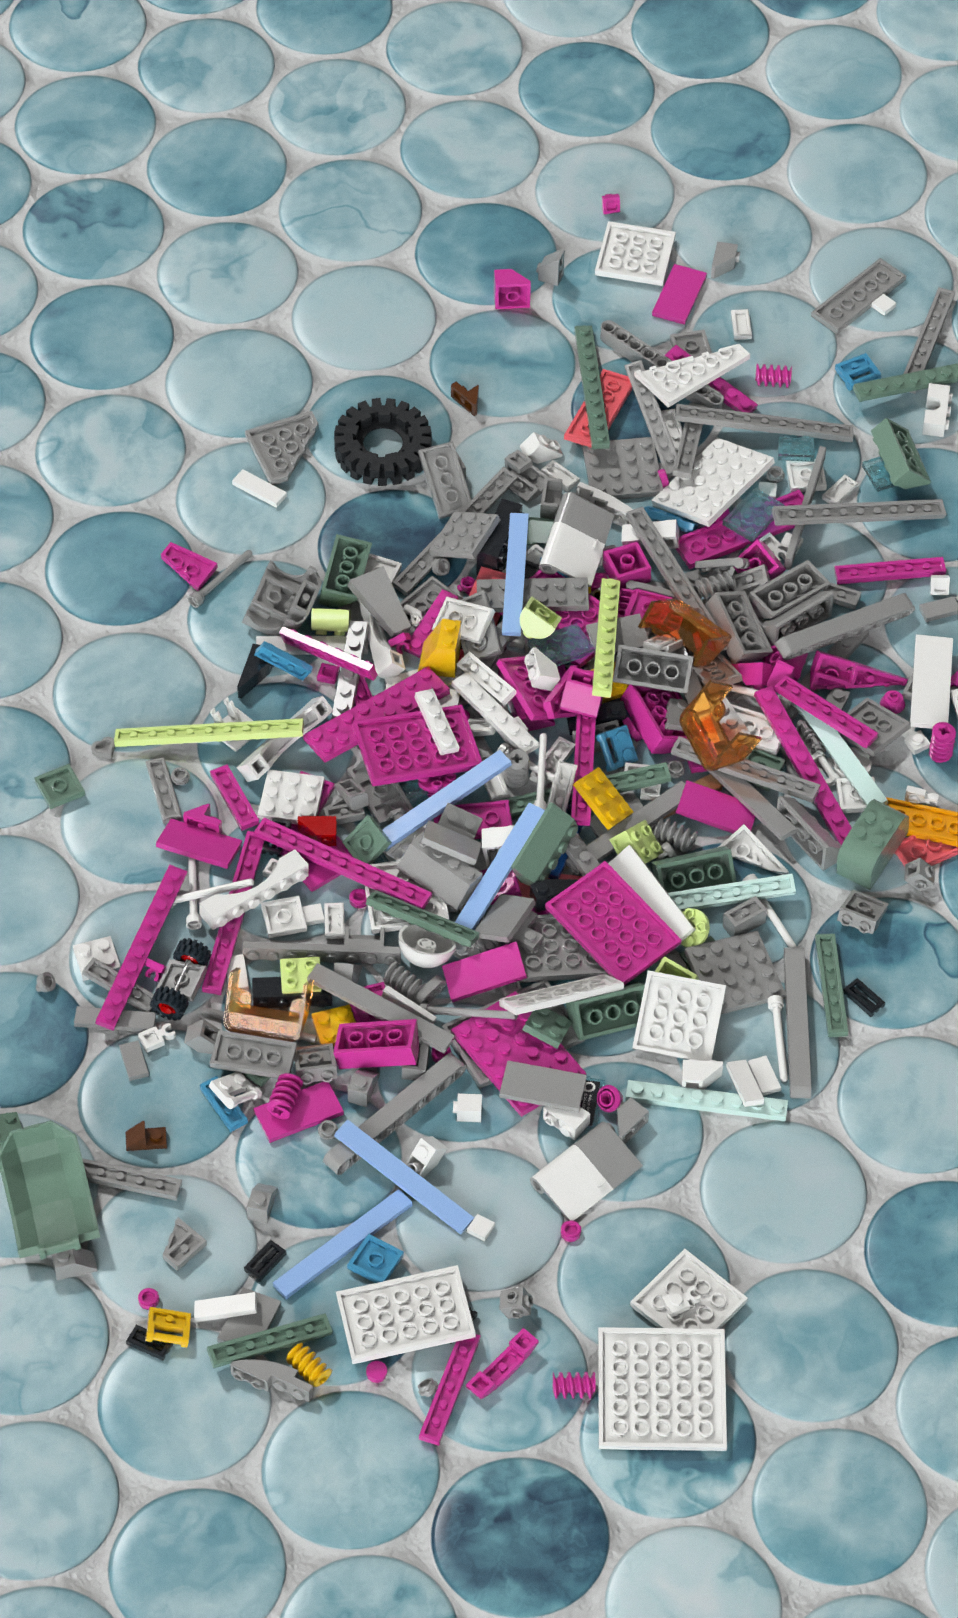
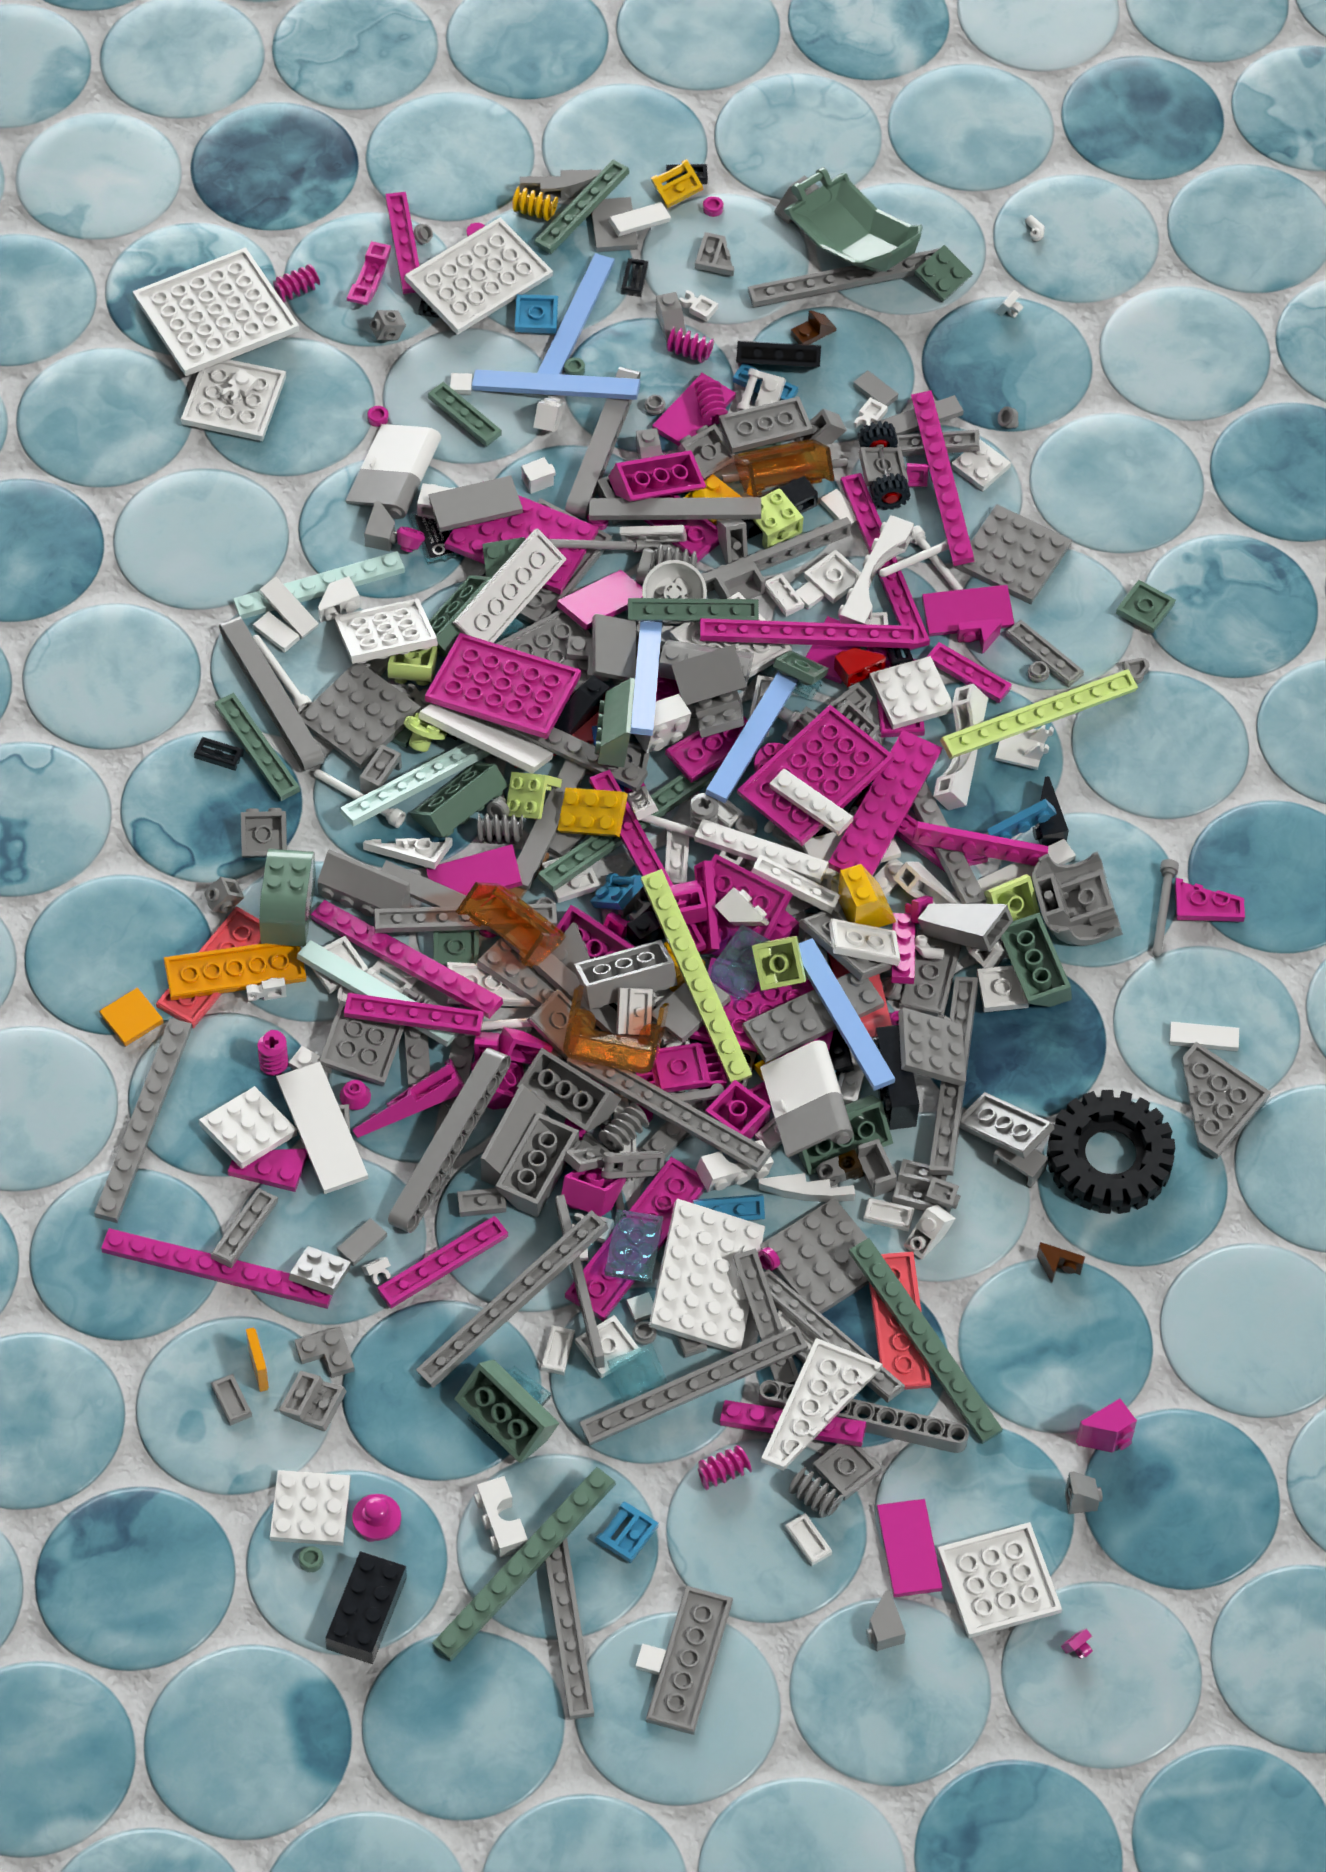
camera: 150 degrees right, 5 degrees up
(123, 875) = (1015, 553): none -> light grey plate
(195, 1118) = (778, 353): none -> black brick
(228, 1200) = (700, 307): none -> white plate
(263, 1163) = (689, 346): none -> dark pink piece
(372, 1197) = (574, 366): none -> sand green tile
(496, 1194) = (464, 414): none -> sand green plate
(541, 772) = (655, 784): white piece -> none
(720, 334) = (814, 1494): none -> light grey piece

